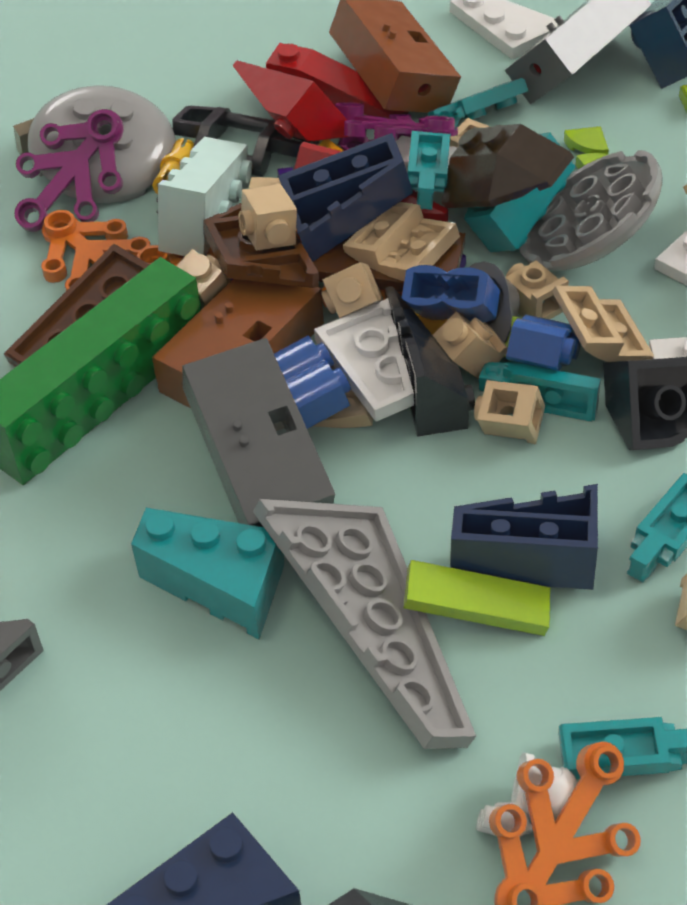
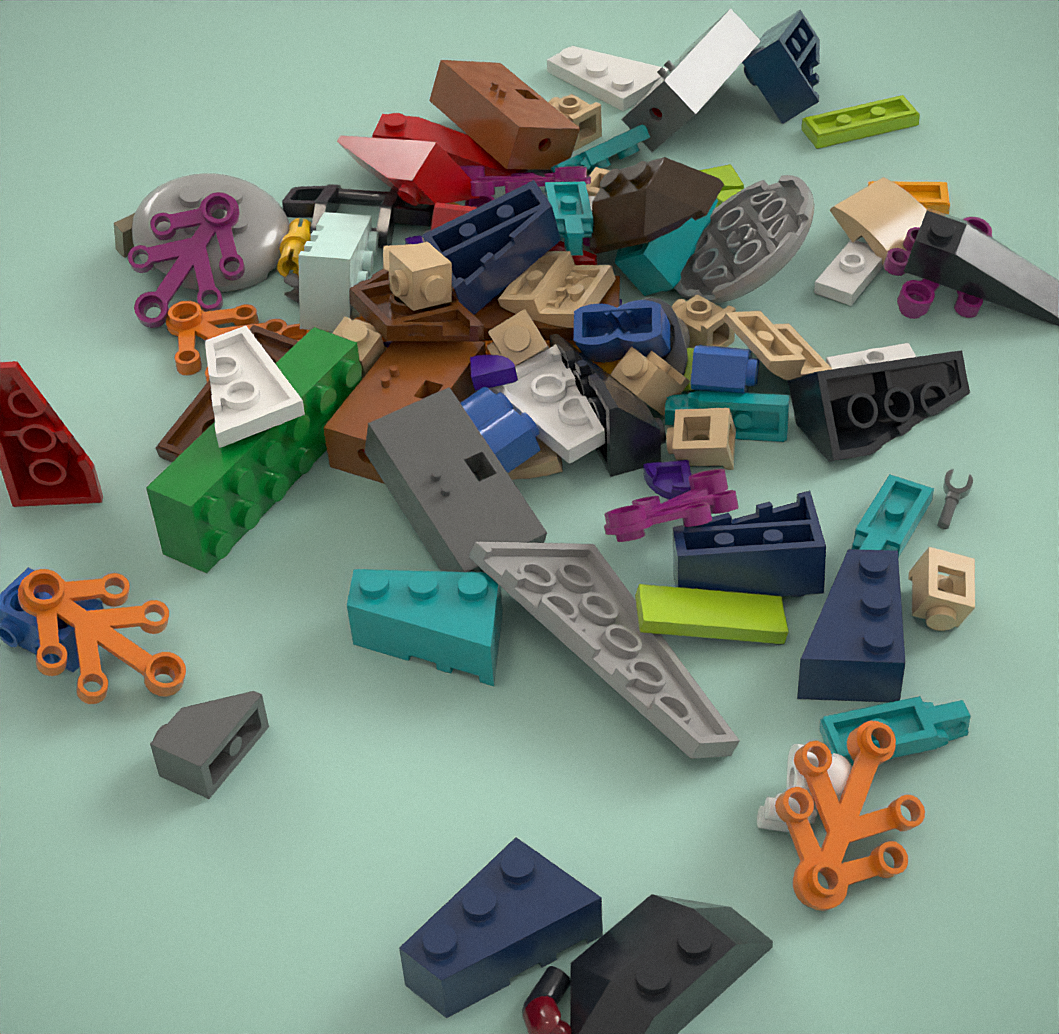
camera: 10 degrees left, 5 degrees down
(79, 314) = (247, 387): none -> white wing
(319, 320) = (492, 371): none -> dark purple tile
(412, 494) = (694, 507): none -> magenta plant
(466, 59) = (583, 115): none -> tan brick
(472, 448) = (668, 478): none -> dark purple tile
(614, 640) = (858, 635): none -> dark blue wedge

